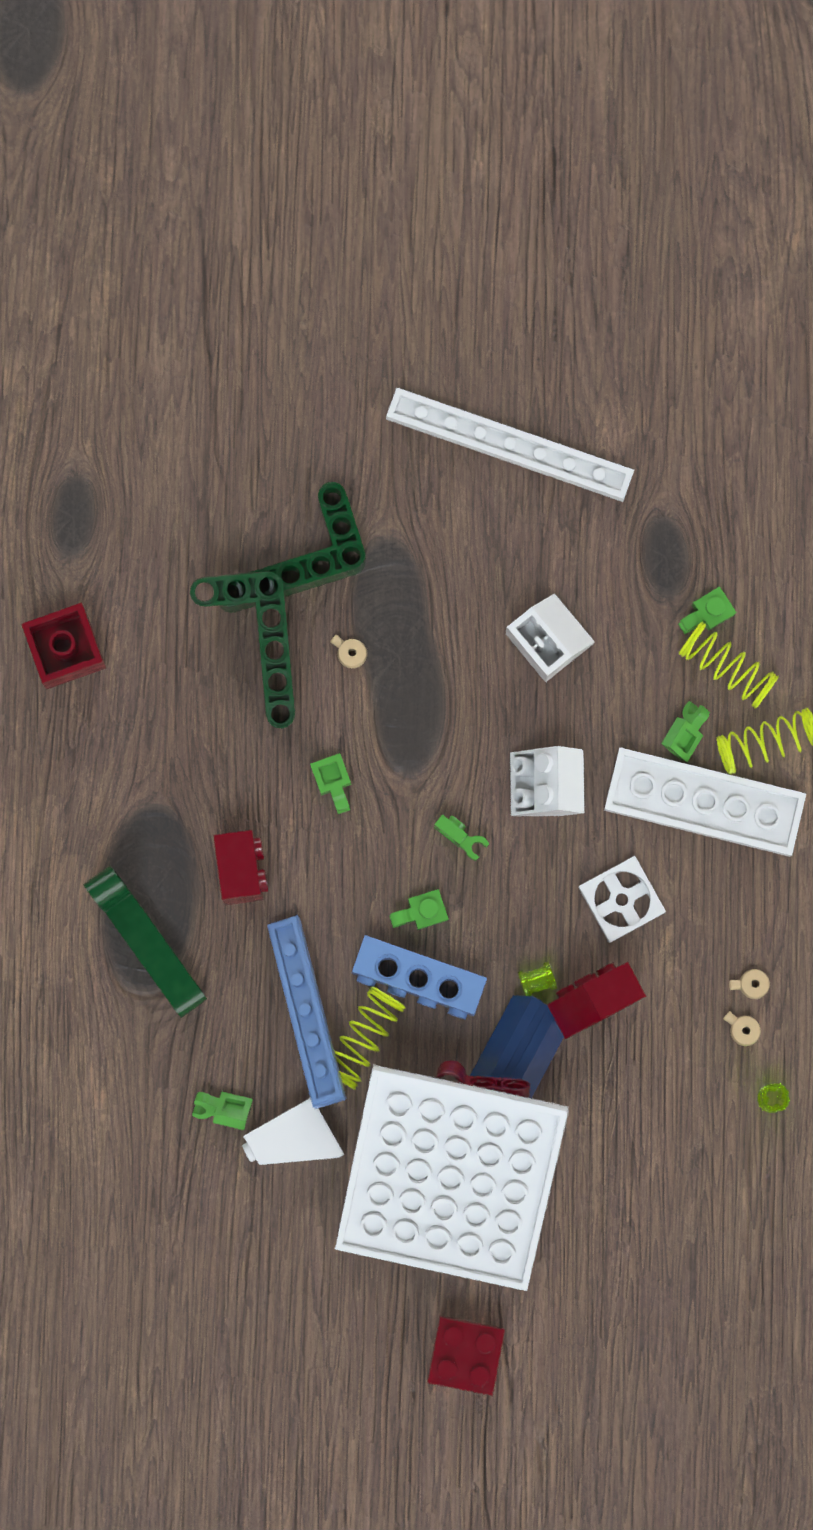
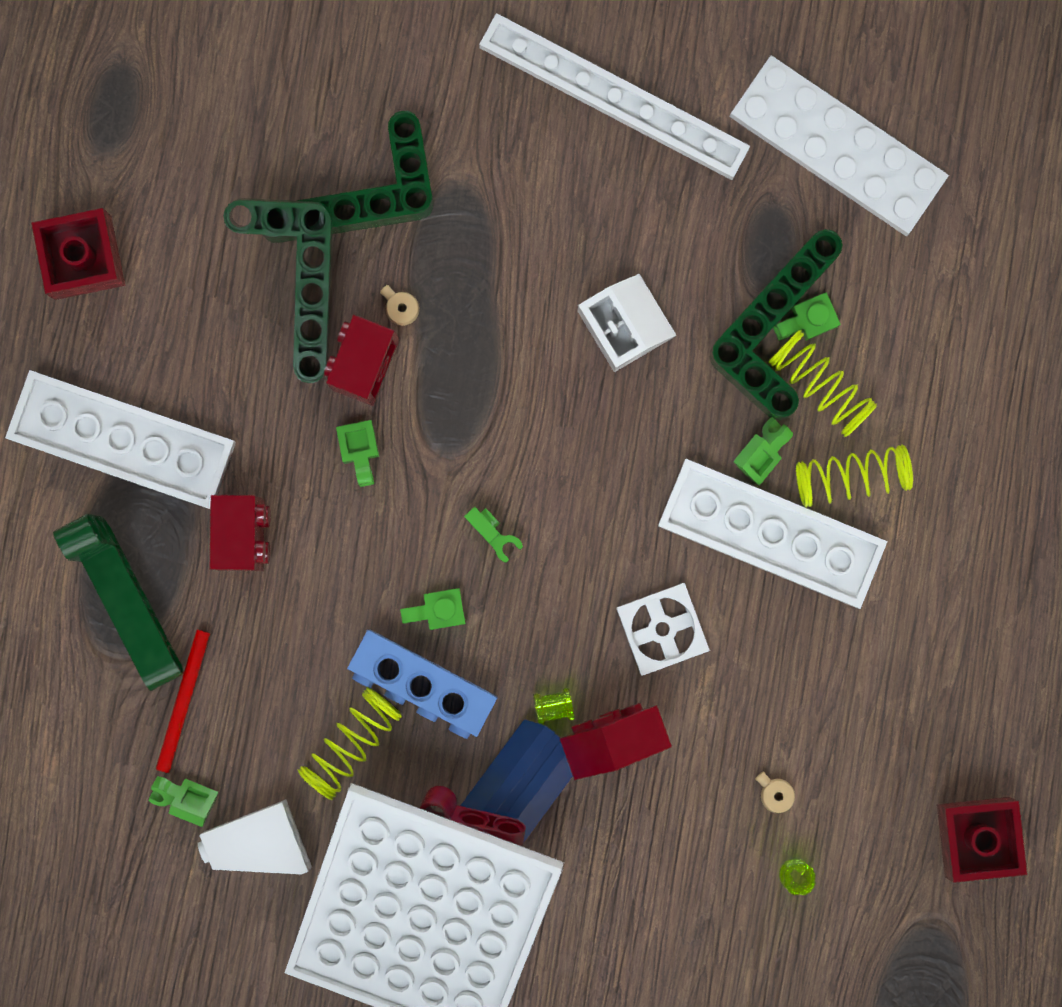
camera: 10 degrees right, 5 degrees up
(122, 802) = (120, 439): none -> white plate
(209, 1023) = (182, 701): none -> red bar
(306, 1012) = (290, 707): medium blue tile -> none
(325, 702) = (361, 359): none -> dark red brick
(547, 782) = (598, 485): white slope -> none
(671, 616) = (767, 319): none -> dark green beam
(710, 459) = (838, 145): none -> white plate
(745, 986) = (786, 742): tan piece -> none

